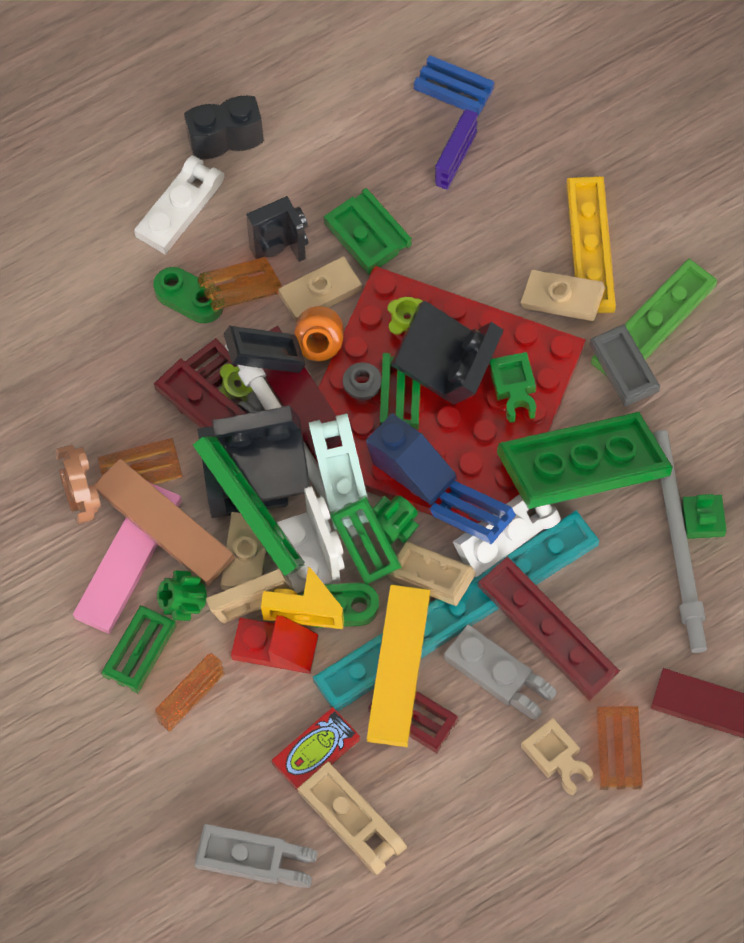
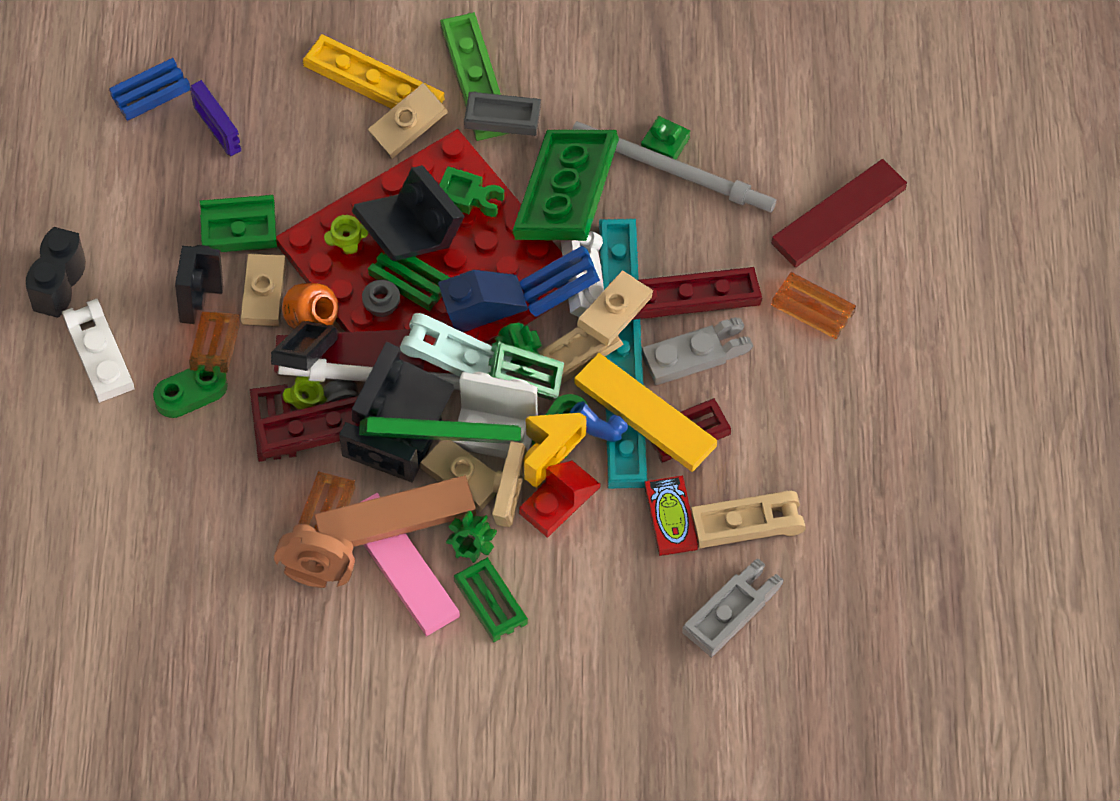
camera: 60 degrees left, 5 degrees down
(189, 692) = (560, 577): clear orange tile -> none
(355, 630) = (597, 427): none -> blue arm
(478, 575) = (614, 308): none -> tan plate
(554, 751) = (789, 349): tan plate -> none

